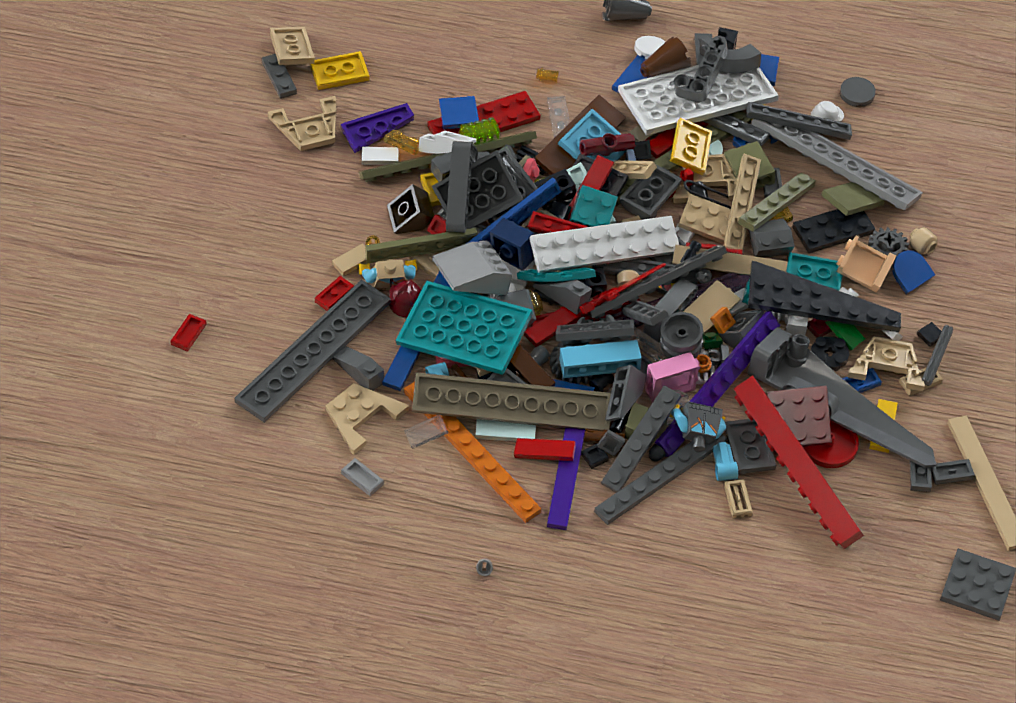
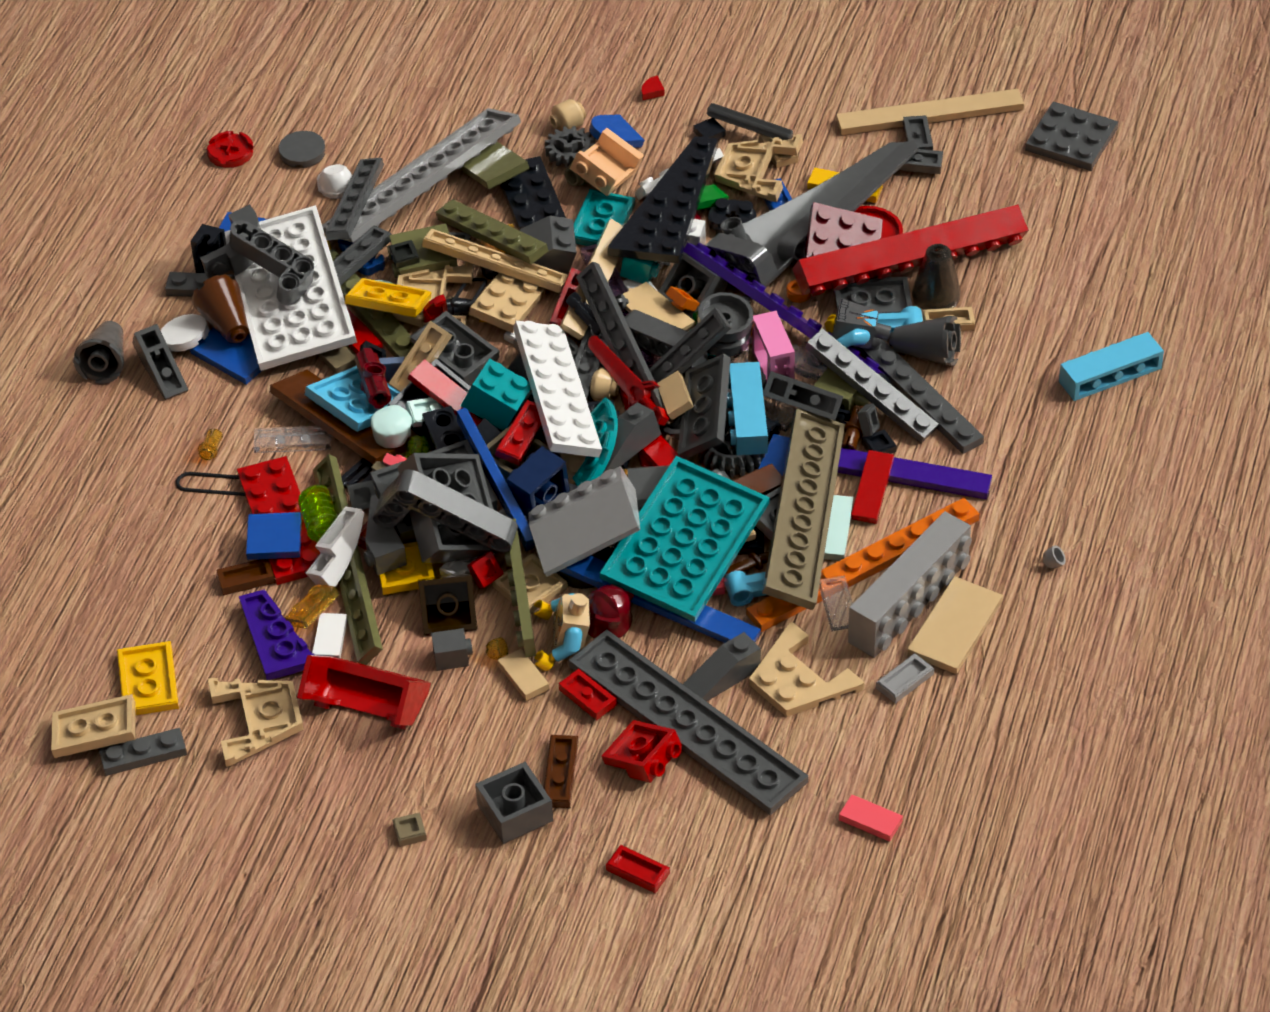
camera: 80 degrees left, 5 degrees down
(219, 212) = (409, 829): none -> dark tan tile
(233, 257) = (514, 802): none -> dark grey brick
(233, 459) = (870, 818): none -> coral tile
(270, 286) = (561, 769): none -> reddish brown tile
(283, 325) = (643, 750): none -> red plate
(338, 172) = (363, 688): none -> red windscreen
(368, 216) = (451, 649): none -> dark grey brick
(415, 506) = (955, 625): none -> tan tile
(429, 105) = (245, 576): none -> reddish brown tile
(440, 469) = (909, 584): none -> light grey brick
(508, 81) = (205, 490): none -> black piece
(561, 158) = (391, 426): none -> light aqua hair
(608, 314) = (675, 395): none -> tan tile
(619, 37) = (159, 361): none -> dark grey slope
(696, 605) = (1111, 366): none -> medium azure brick
(701, 482) = (929, 340): none -> dark grey cone
(737, 150) = (404, 254): none -> pearl dark grey tile
(770, 484) = (936, 280): none -> clear smoke cone
(849, 52) = (230, 149): none -> red tile
(973, 294) = (652, 88): none -> red tile

